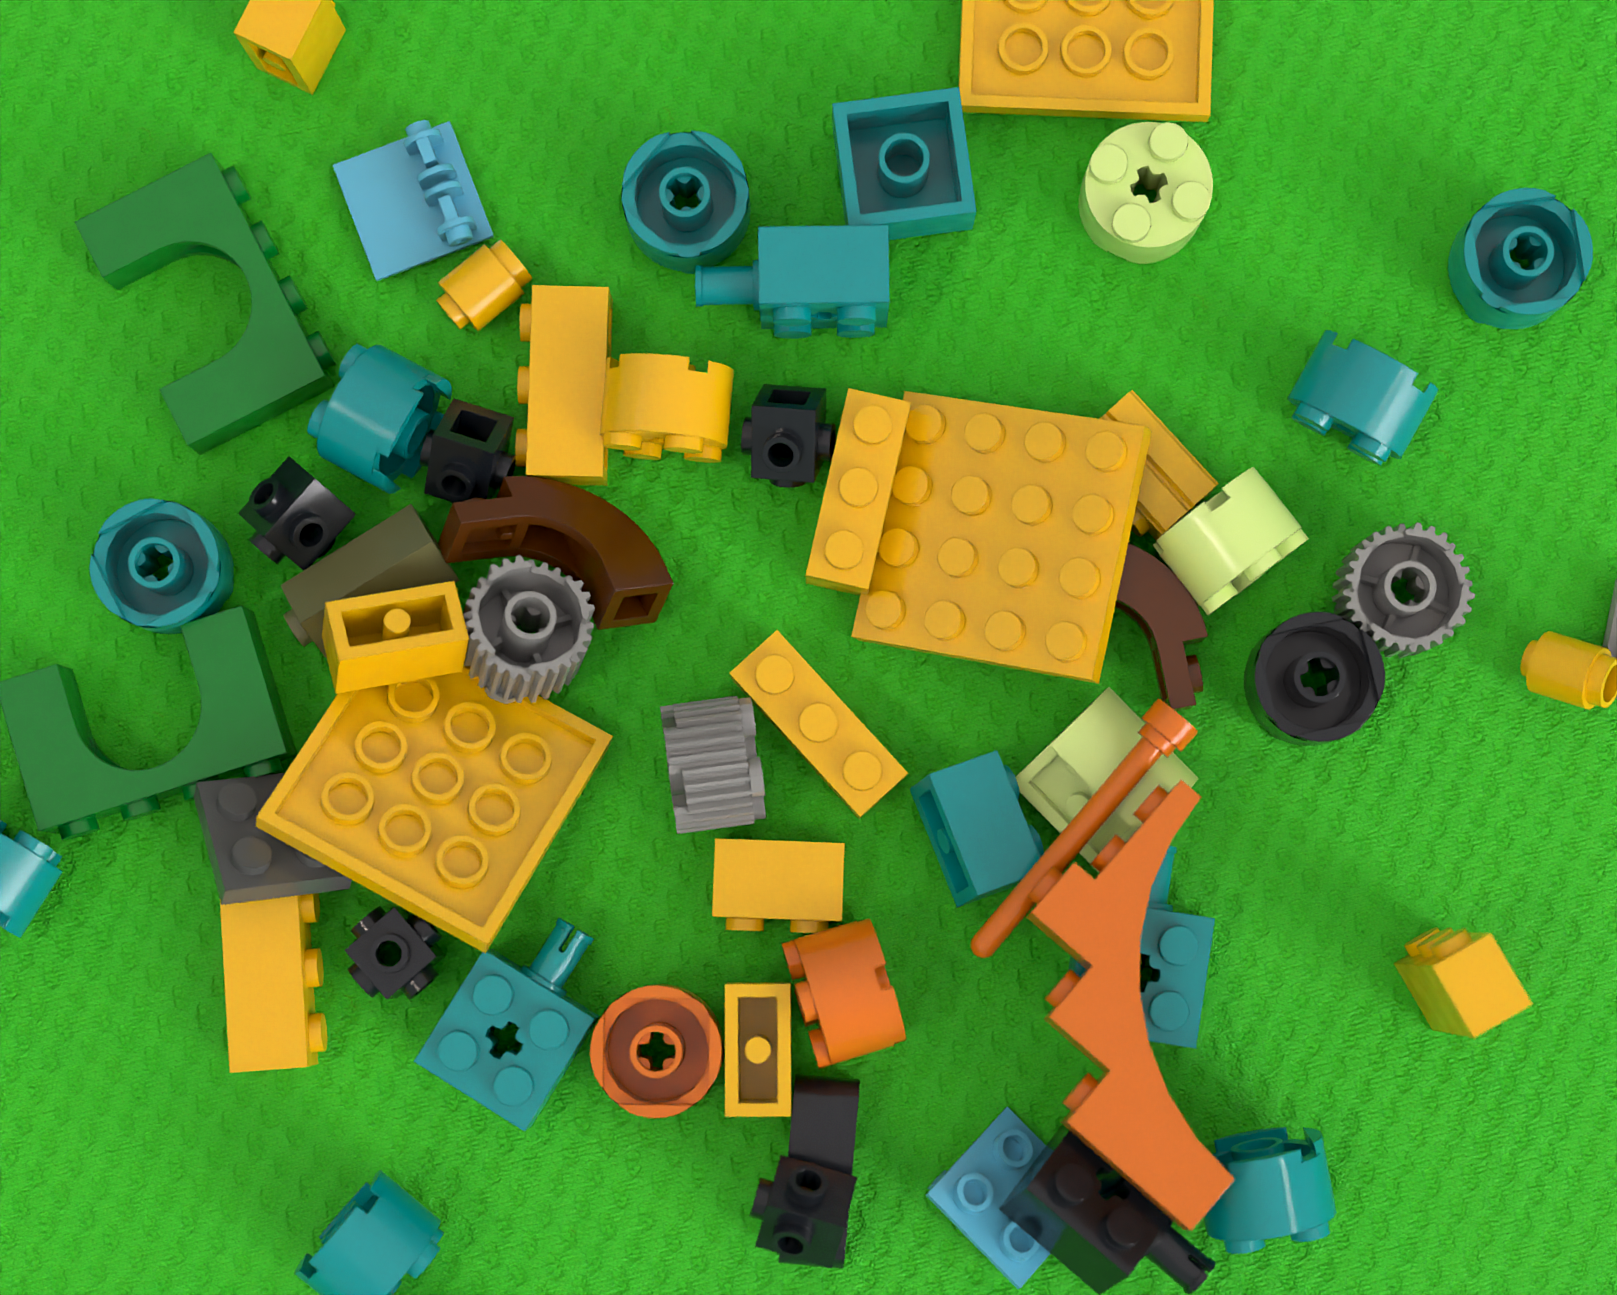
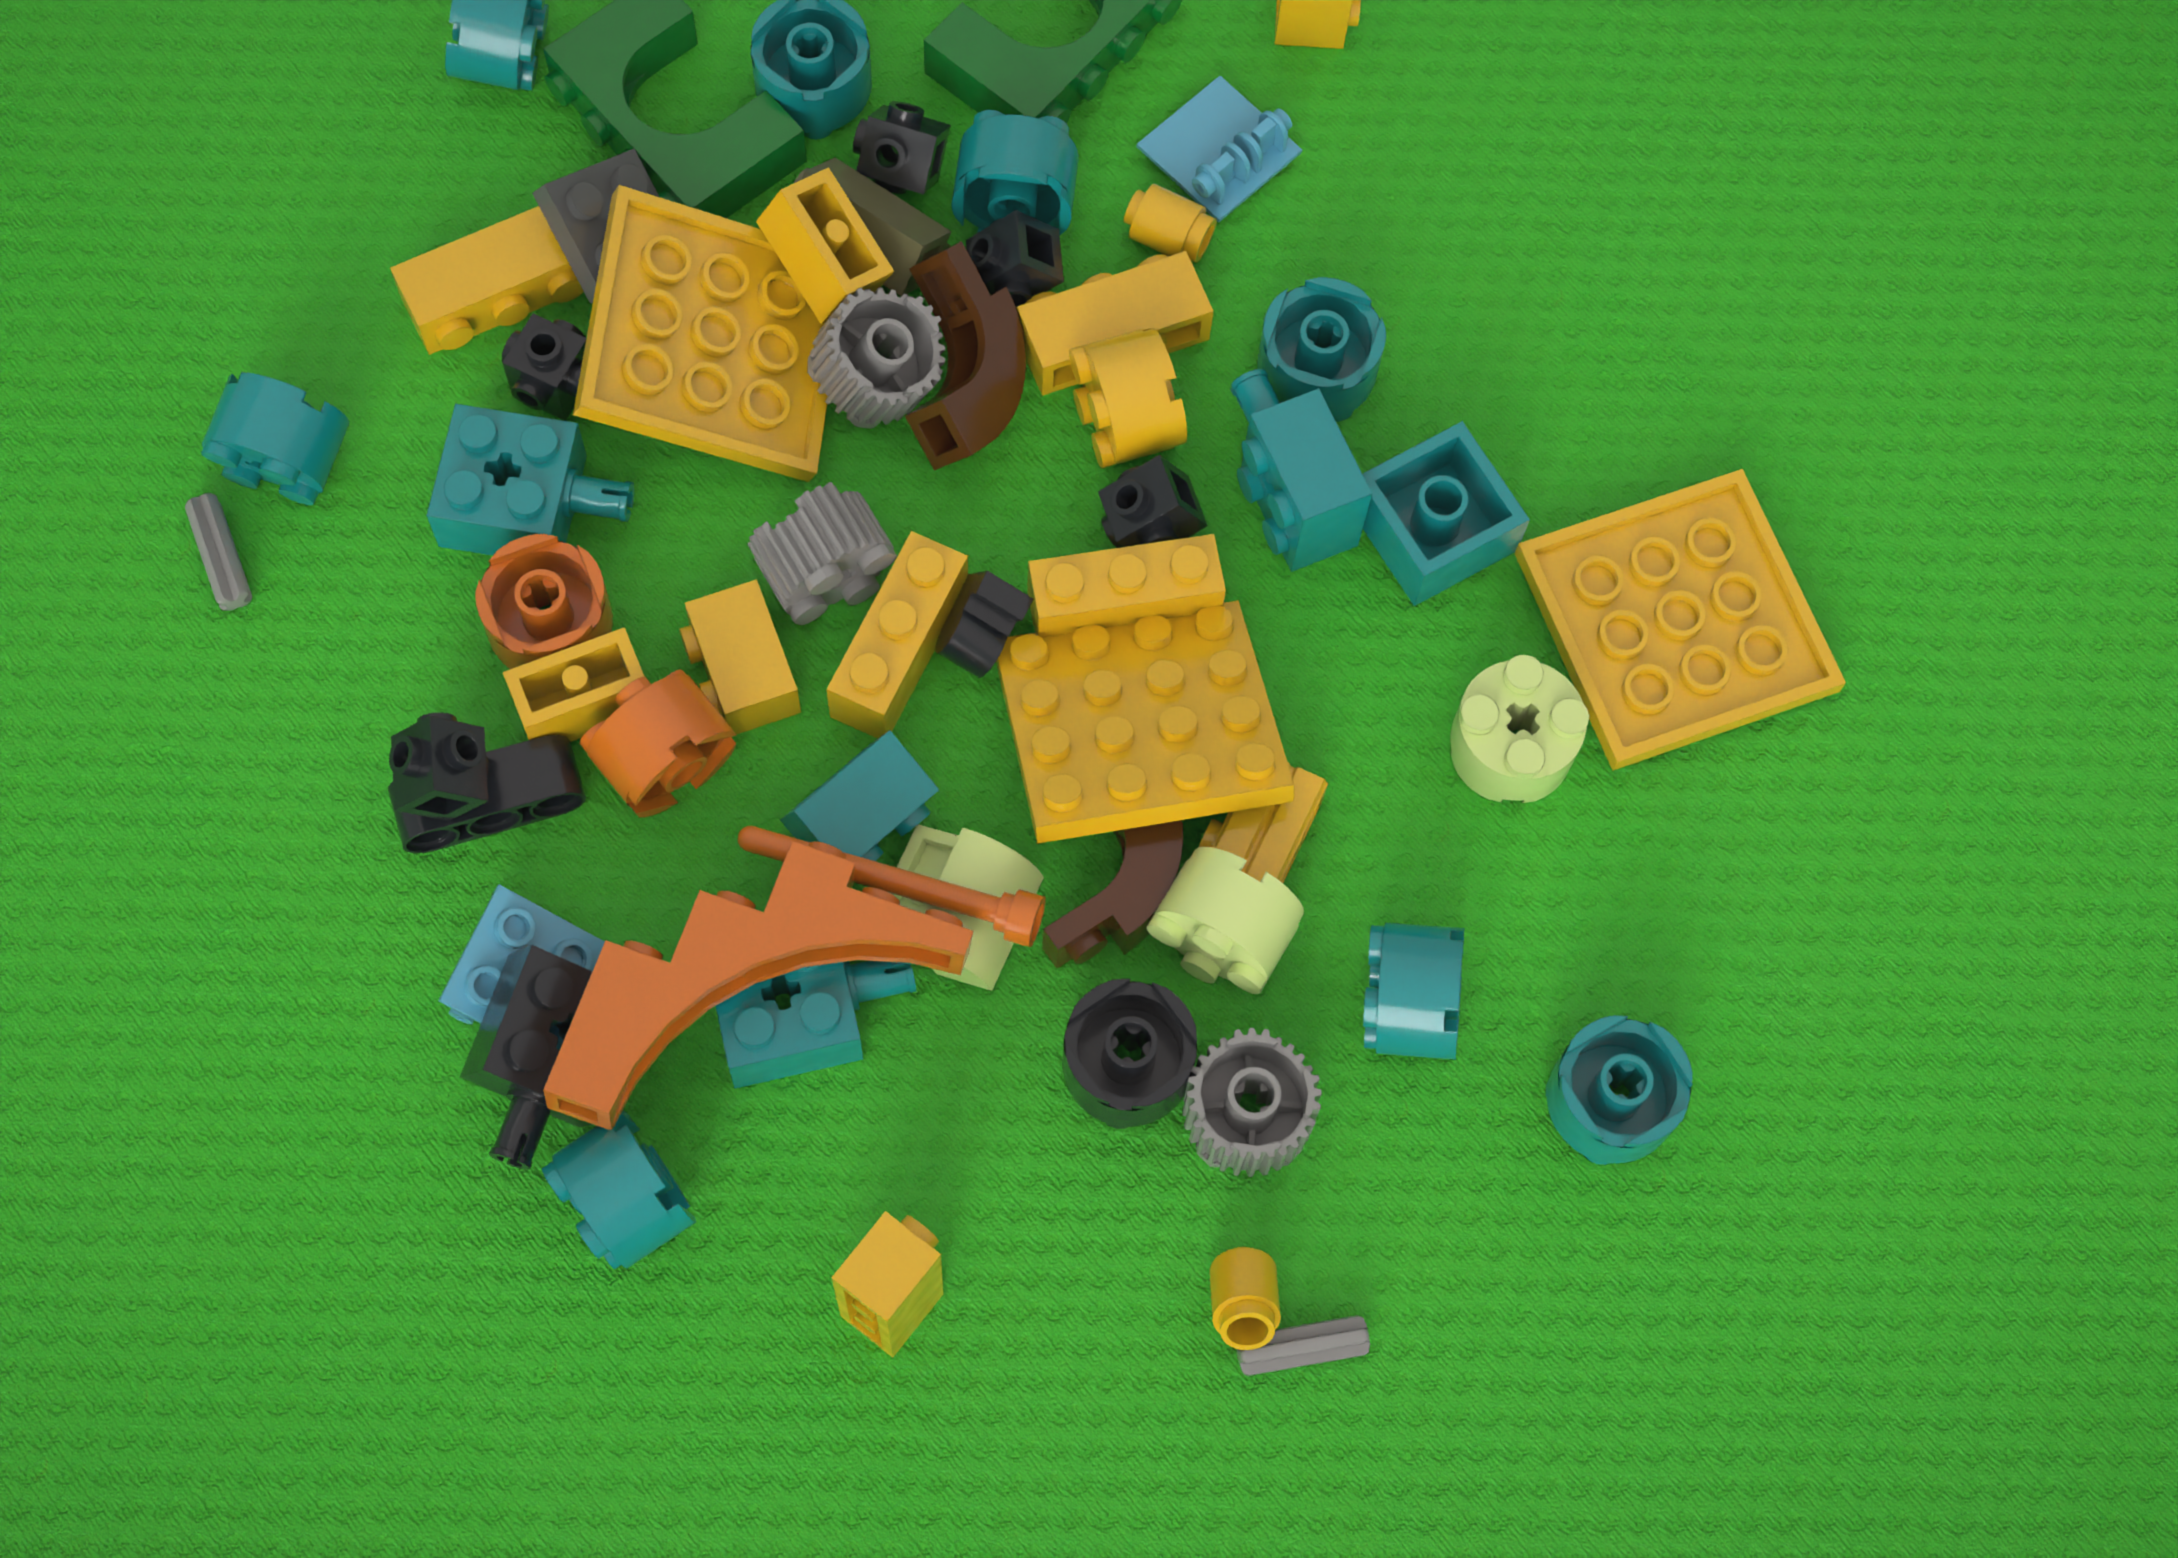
camera: 60 degrees right, 15 degrees down
(837, 642) = (981, 622): none -> black leg

